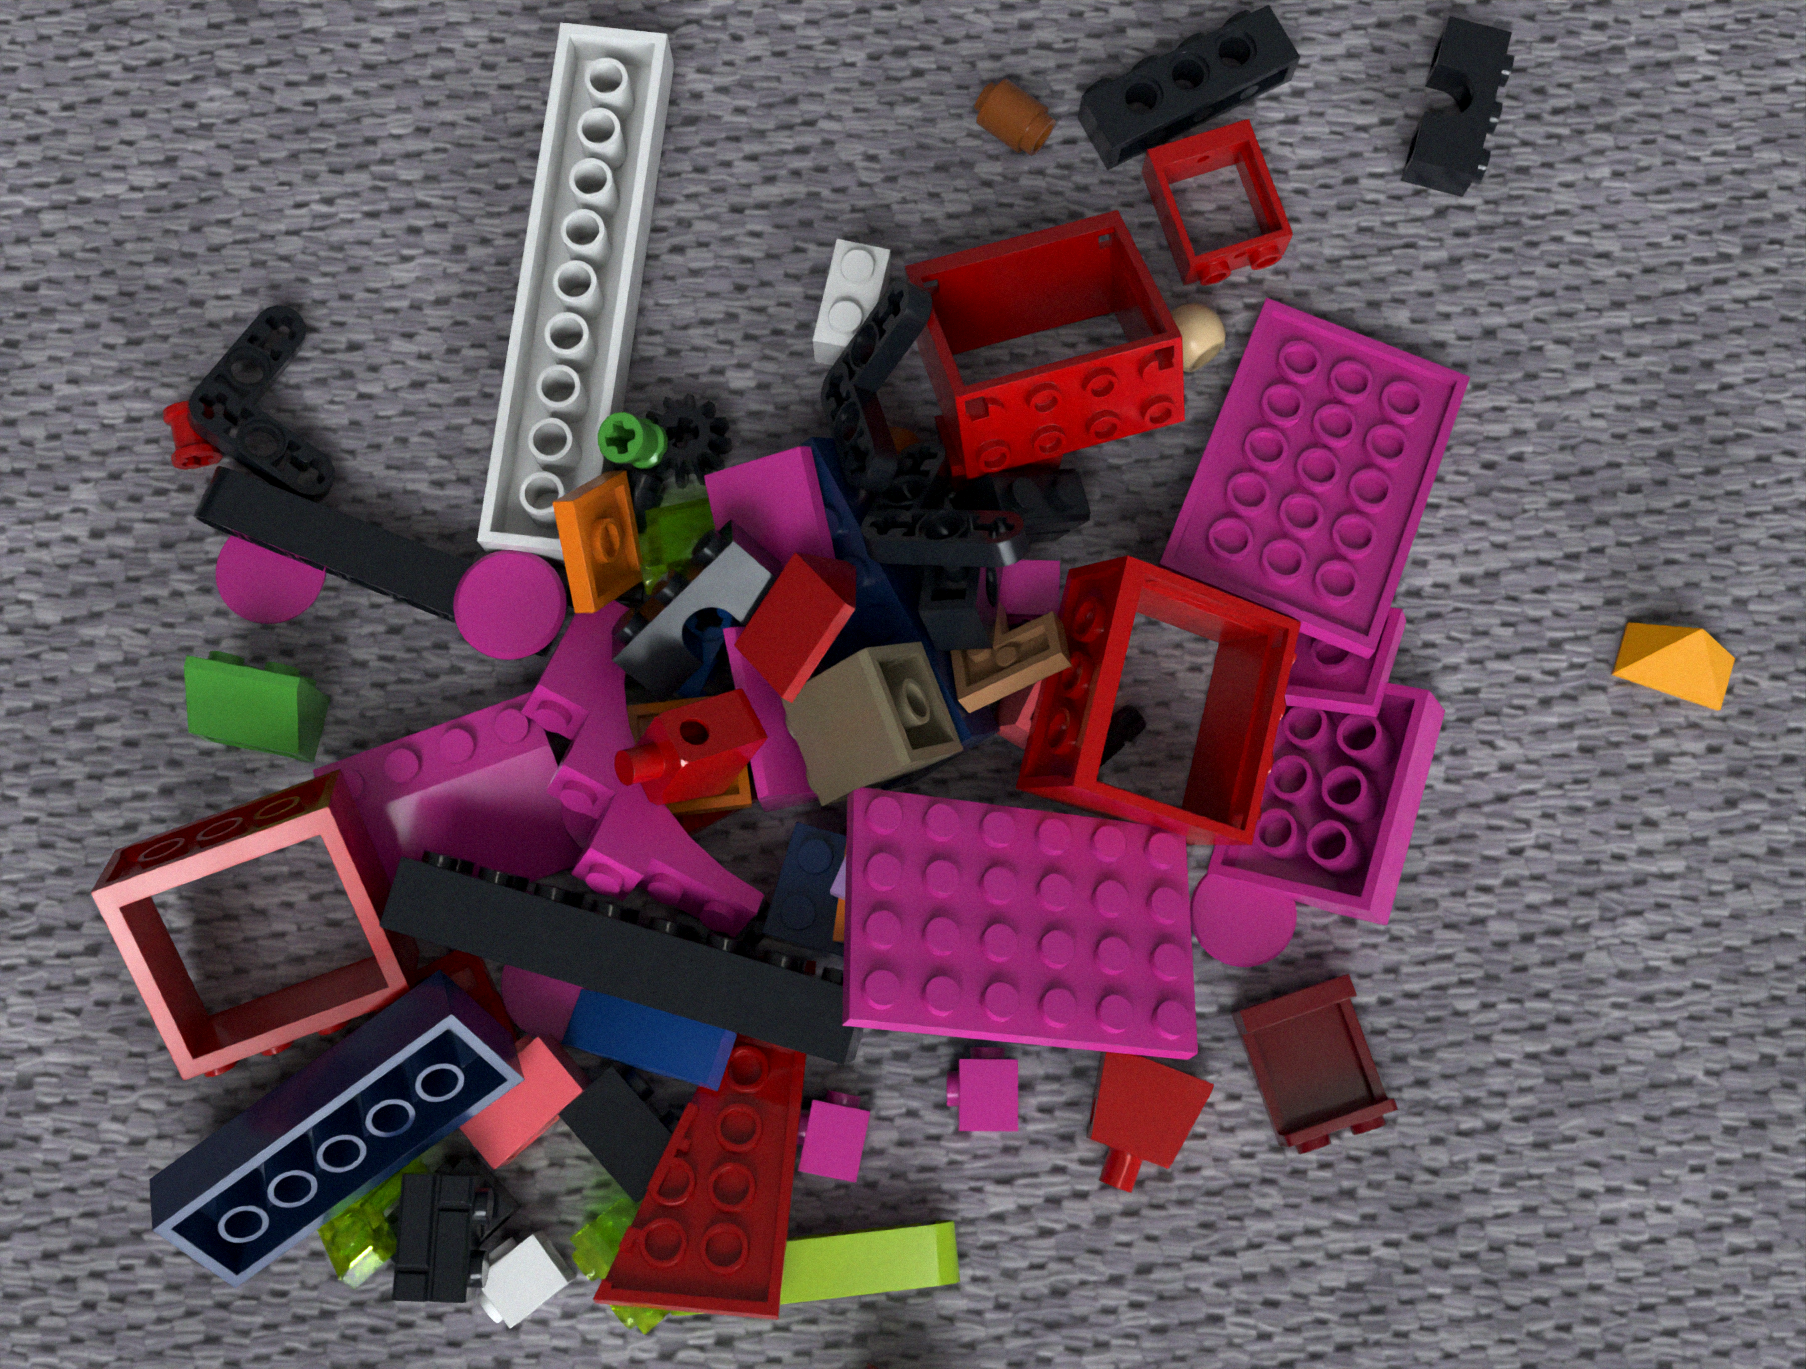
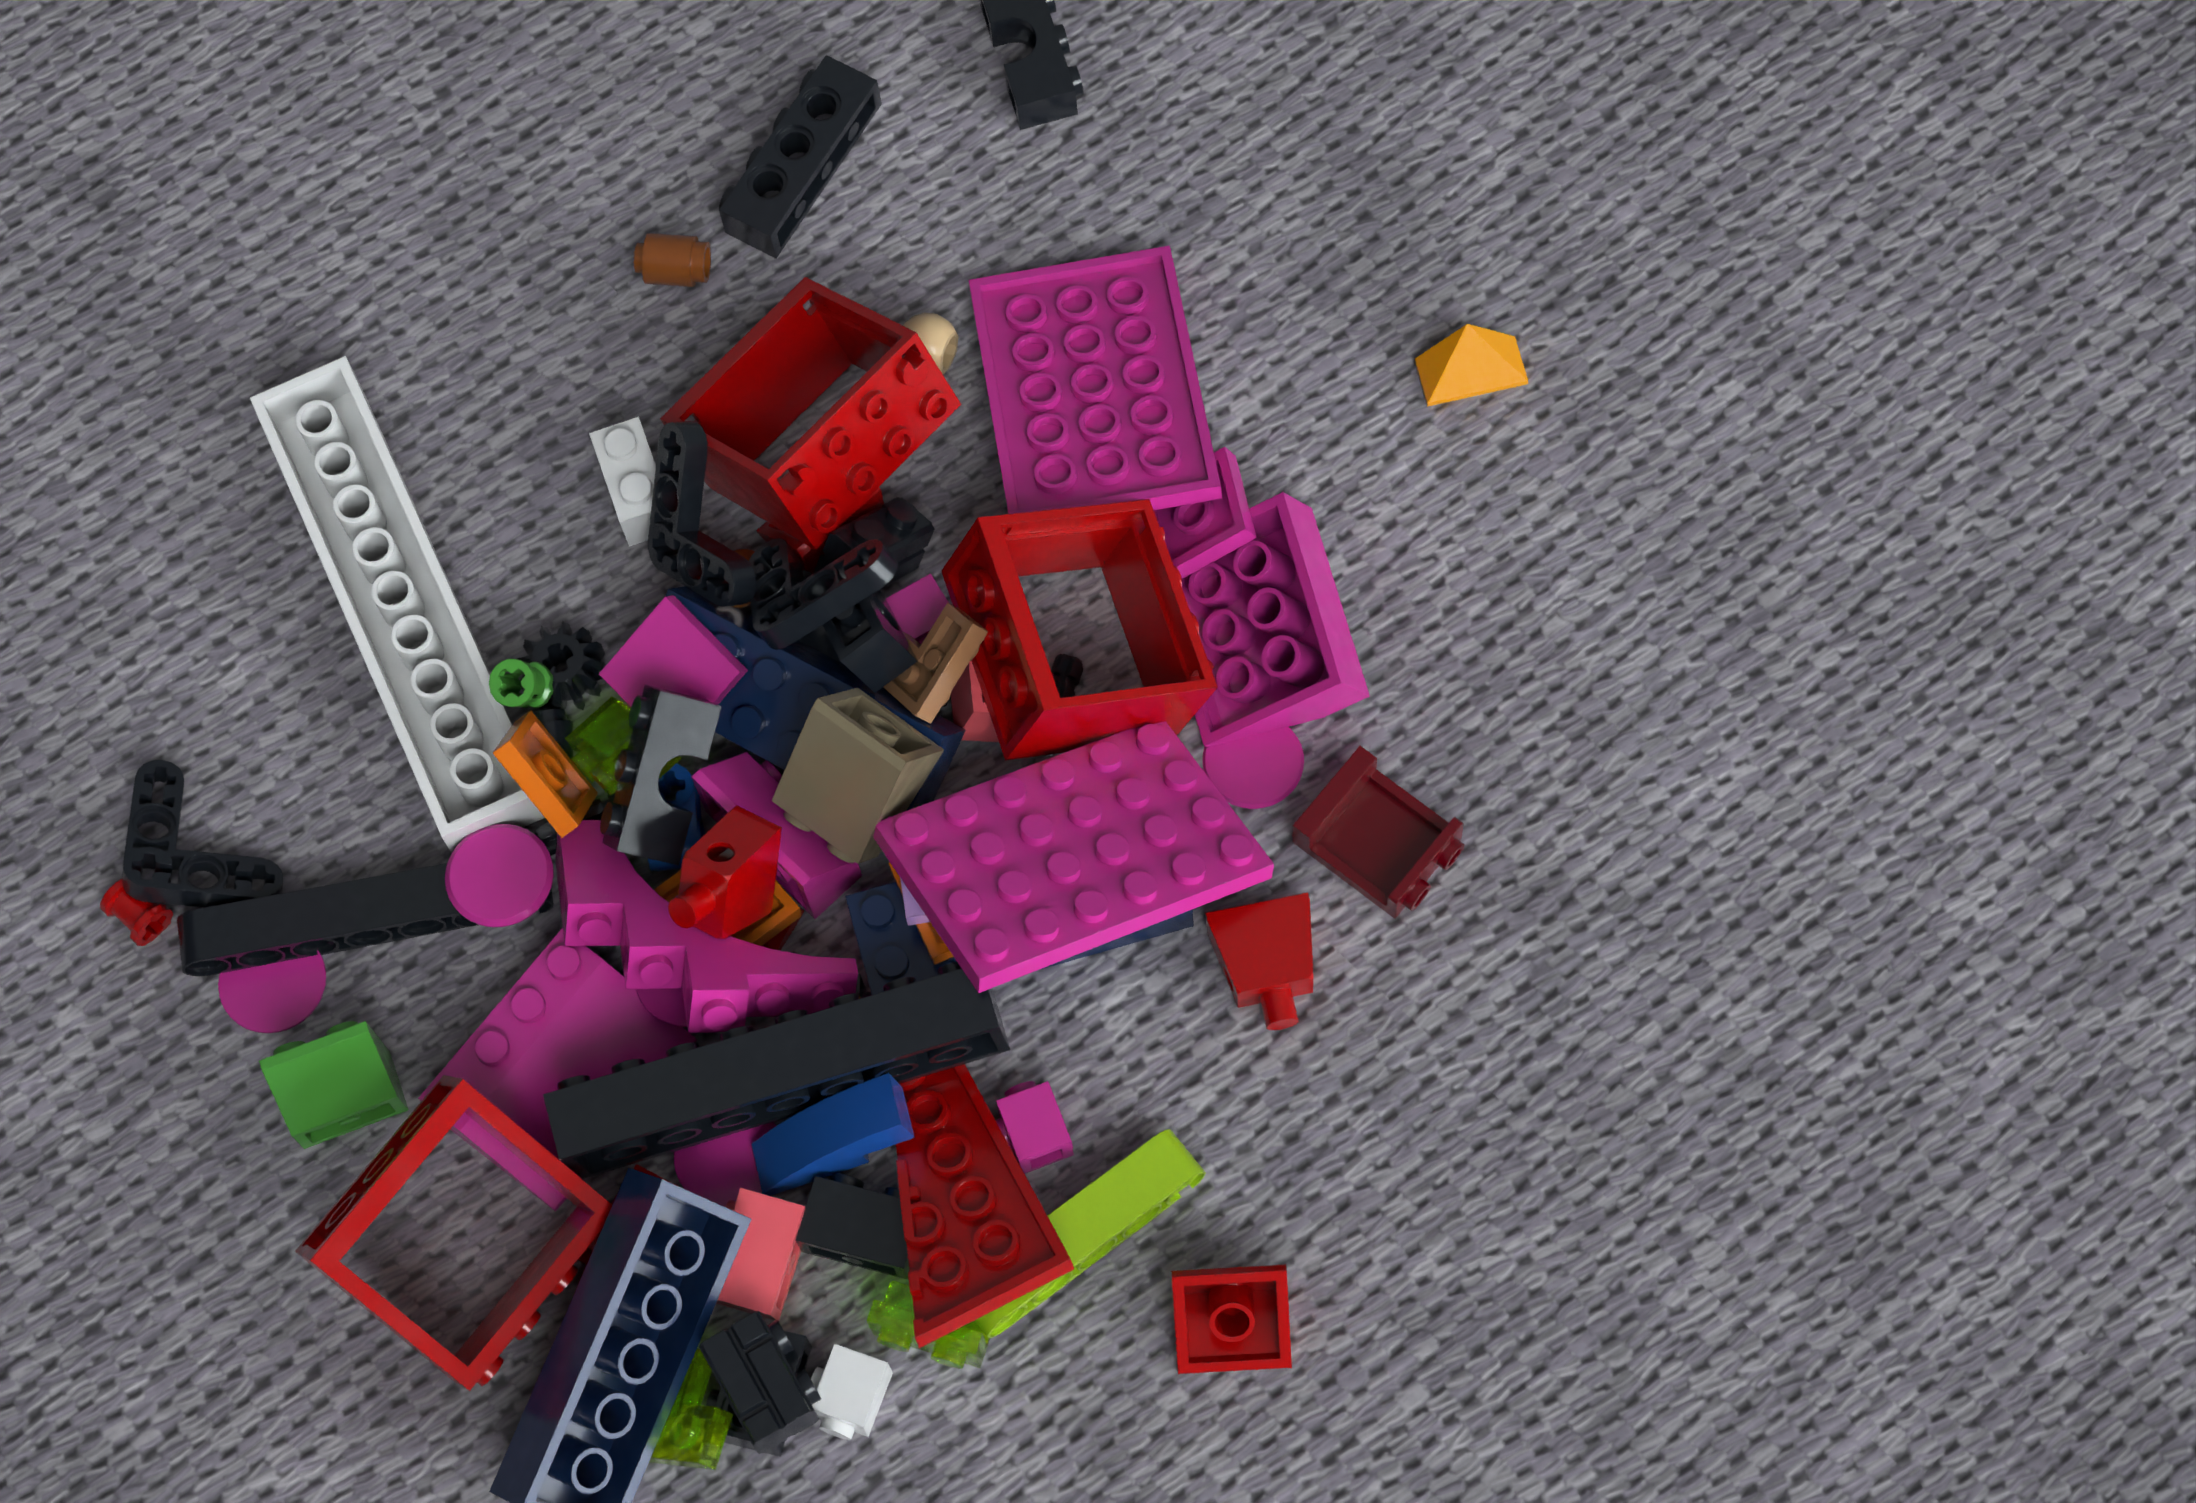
camera: 25 degrees left, 10 degrees down
(799, 621) = (749, 726): red slope -> none
(985, 1091) = (1132, 1016): dark pink brick -> none
(1203, 154) = (846, 201): red window -> none

